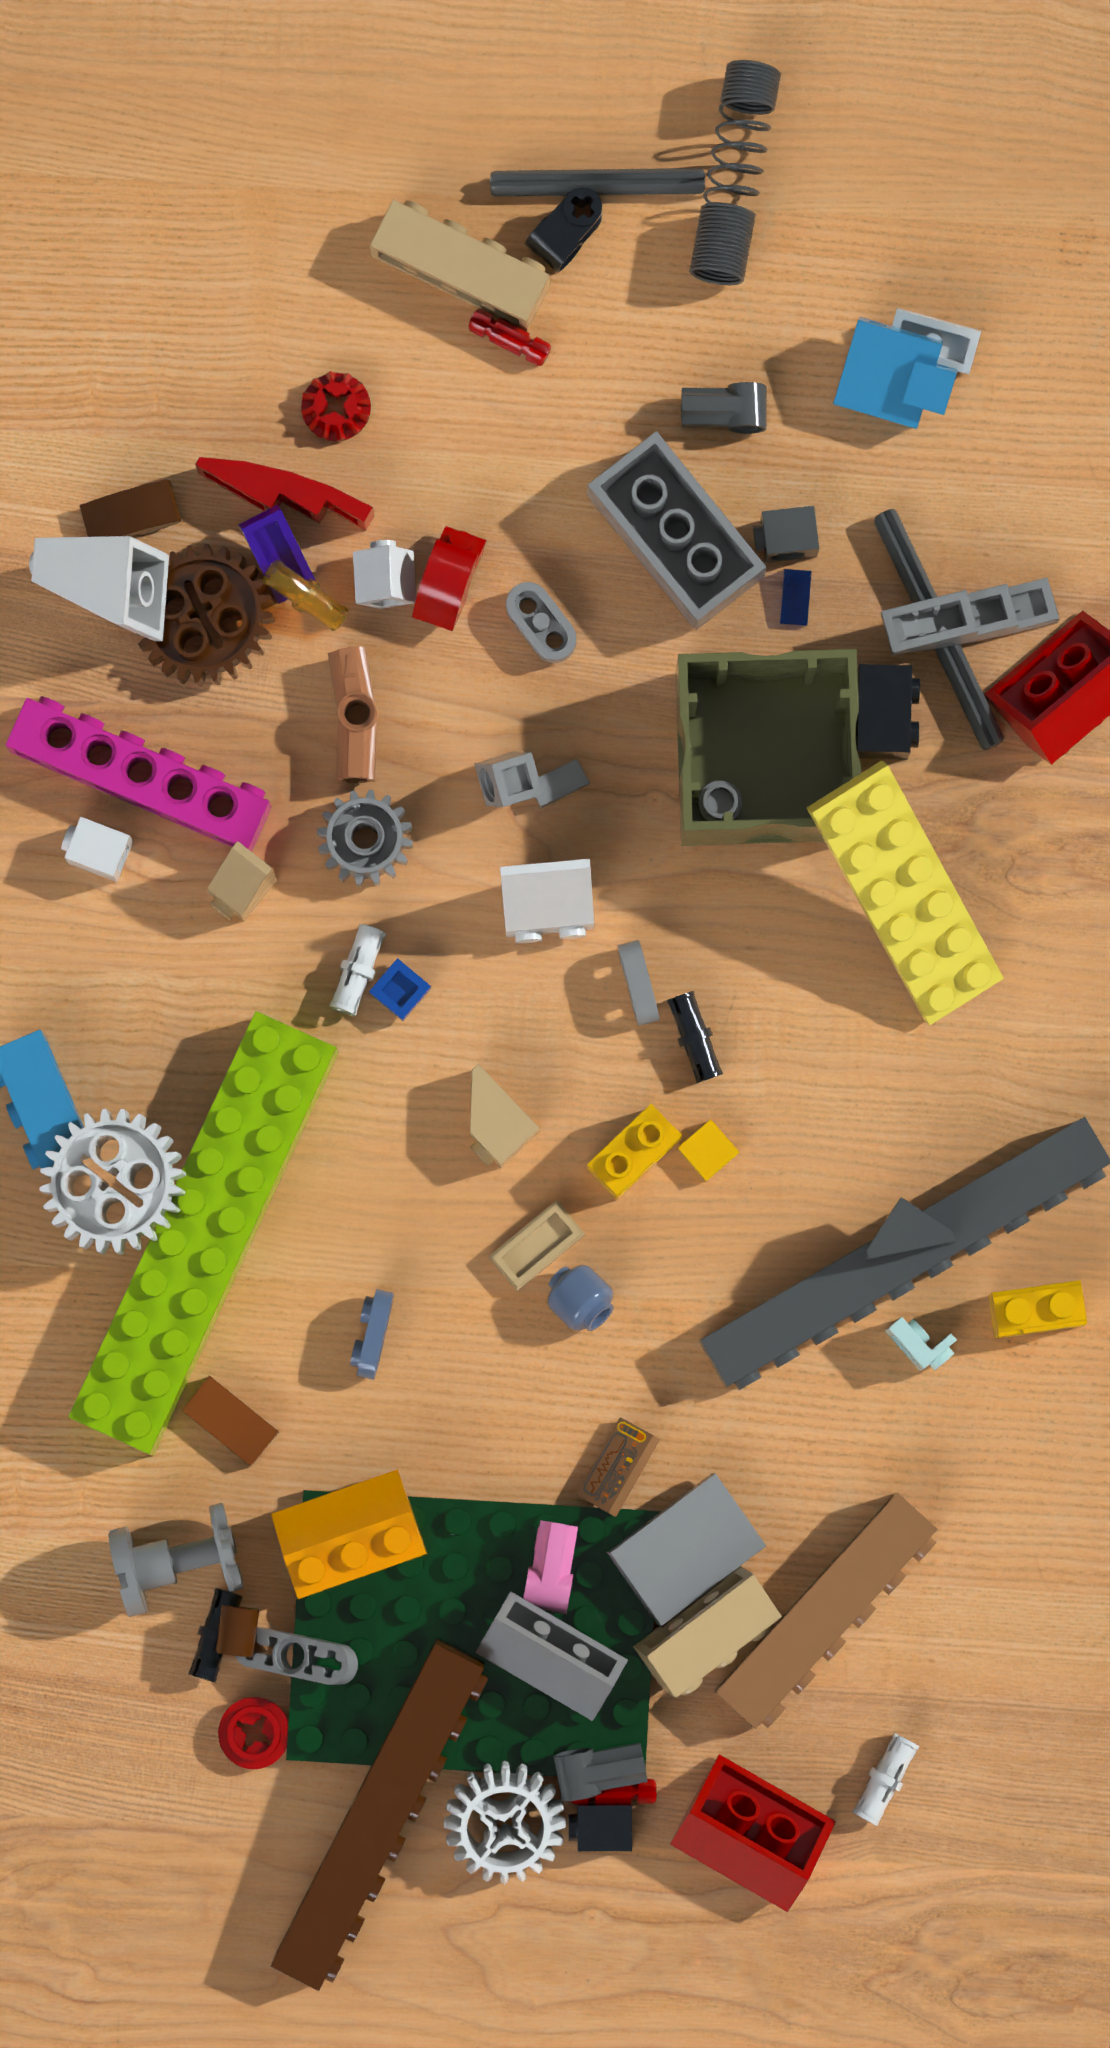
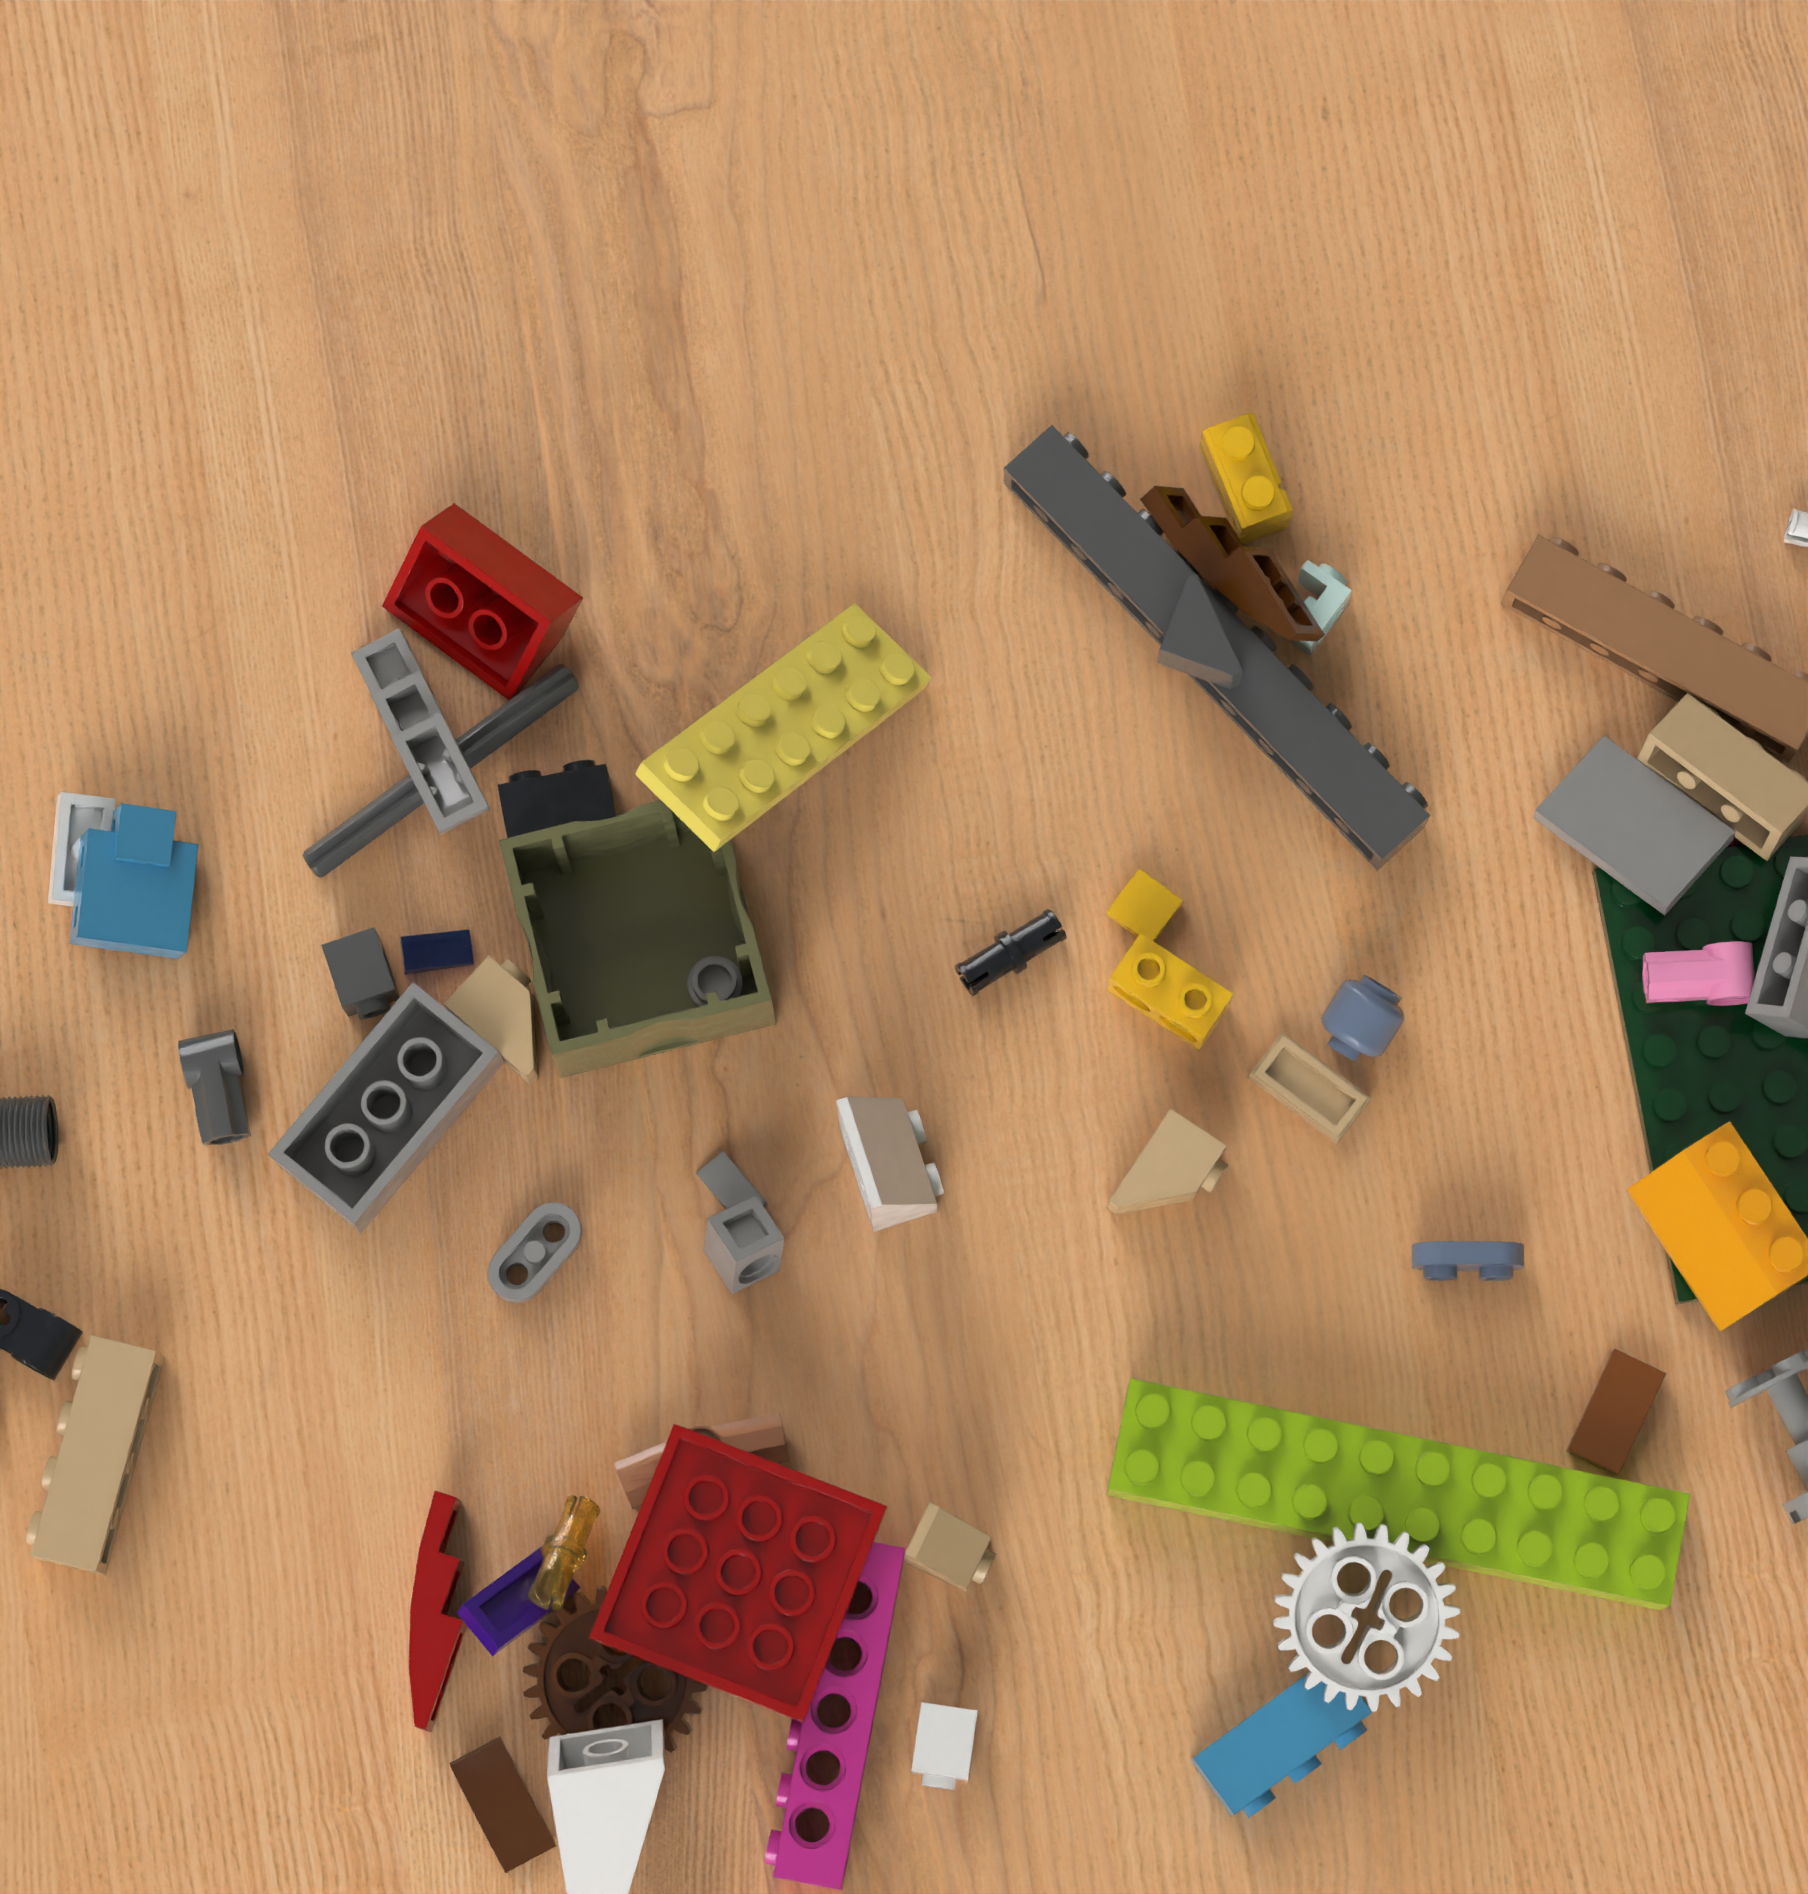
camera: 100 degrees left, 5 degrees down
(255, 717) = (738, 1573): none -> red plate
(334, 426) = (336, 1569): red gear -> none
(357, 970) = (1022, 1382): white pin -> none
(360, 814) = (849, 1378): light grey gear -> none
(384, 575) = (517, 1458): white brick -> none
(400, 989) = (1035, 1323): blue plate -> none
(448, 578) = (503, 1377): red brick -> none
(509, 337) = (177, 1374): red axle -> none
(618, 1467) = (1555, 929): medium nougat tile -> none
(638, 982) = (959, 1034): light grey beam -> none
(732, 628) = (501, 1012): none -> tan slope
(951, 1284) = (1241, 573): none -> reddish brown slope

